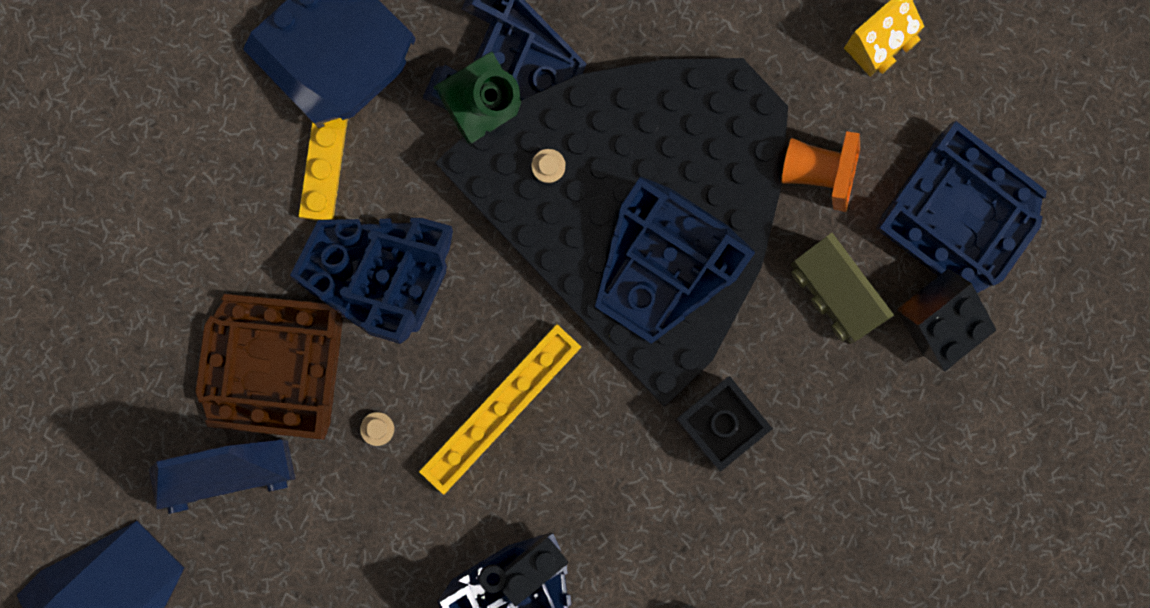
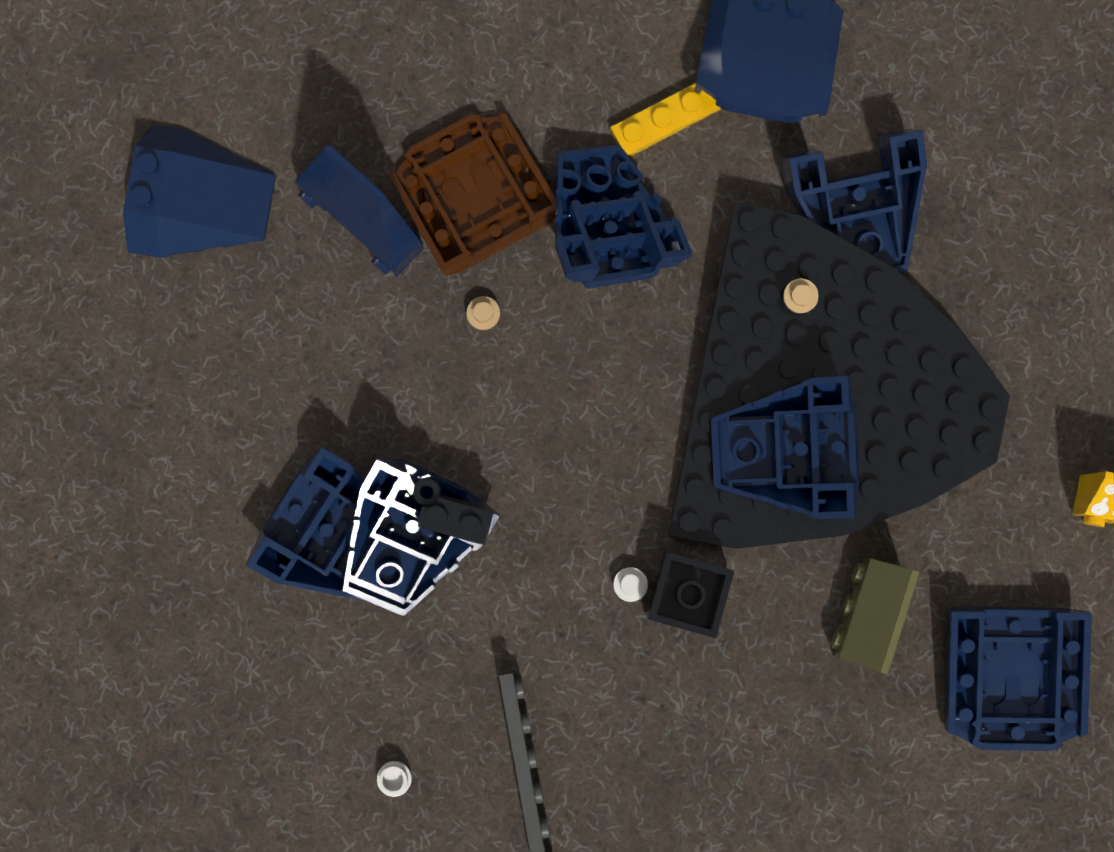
camera: 60 degrees right, 0 degrees up
(465, 98) = (802, 196): dark green plant -> none
(500, 409) = (570, 401): yellow plate -> none
(681, 465) = (630, 584): none -> white plate
(824, 167) = (967, 528): orange plant -> none
(946, 319) = (915, 723): black brick -> none

